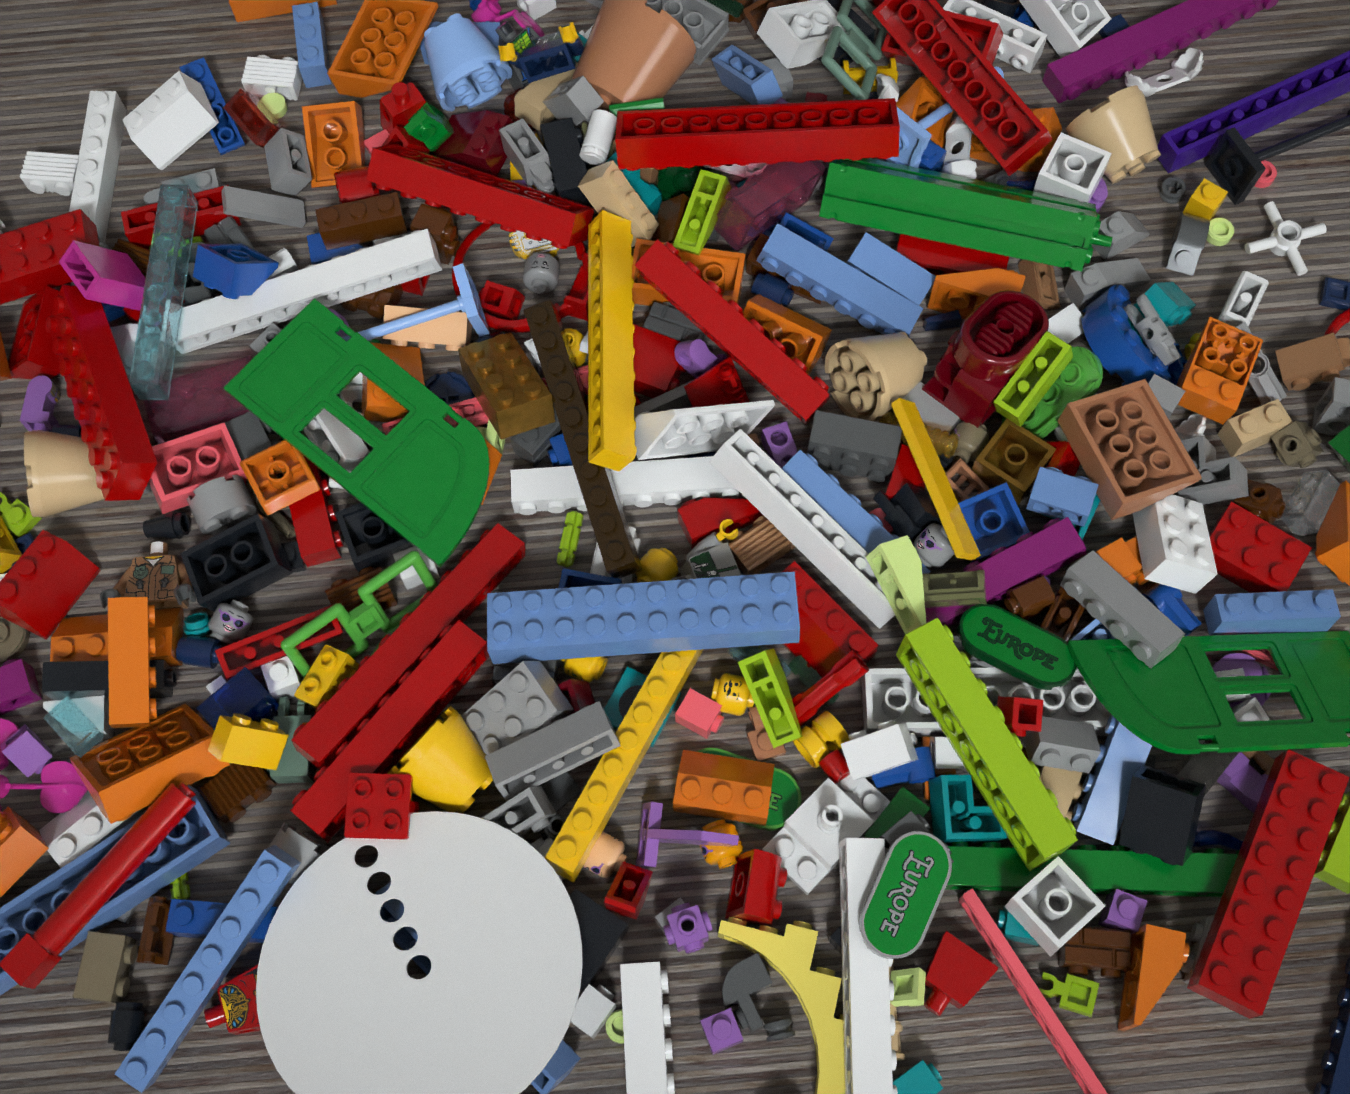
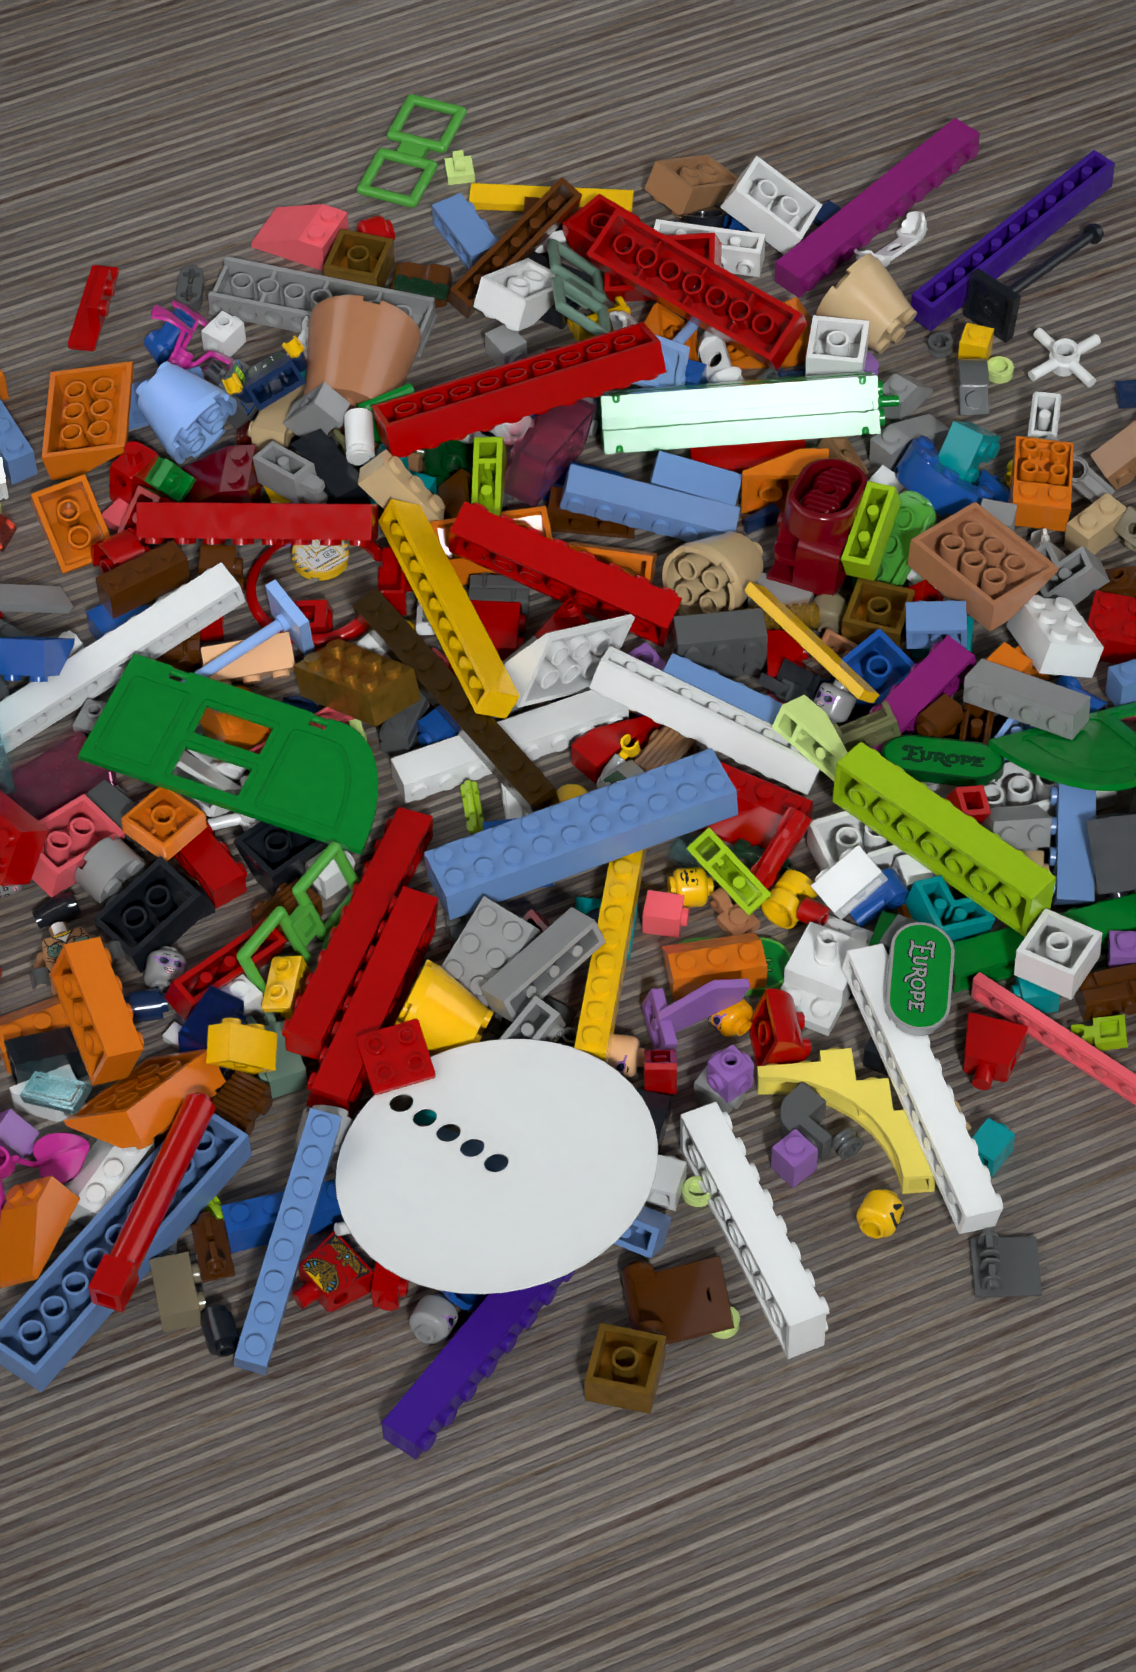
camera: 20 degrees left, 15 degrees down
(197, 624) = (131, 983): teal plate -> none
(288, 162) = (32, 553): light grey brick -> none
(541, 271) = (341, 581): light grey head -> none
(585, 668) = (538, 899): yellow head -> none
(695, 357) = (533, 610): medium lavender leg -> none
(746, 76) = (477, 348): medium blue brick -> none
(773, 288) = (583, 533): dark blue brick -> none
(908, 987) = (955, 1068): yellowish green tile -> none
(1153, 330) = (978, 471): light grey hinge -> none
(1267, 176) = (1026, 309): coral tile -> none

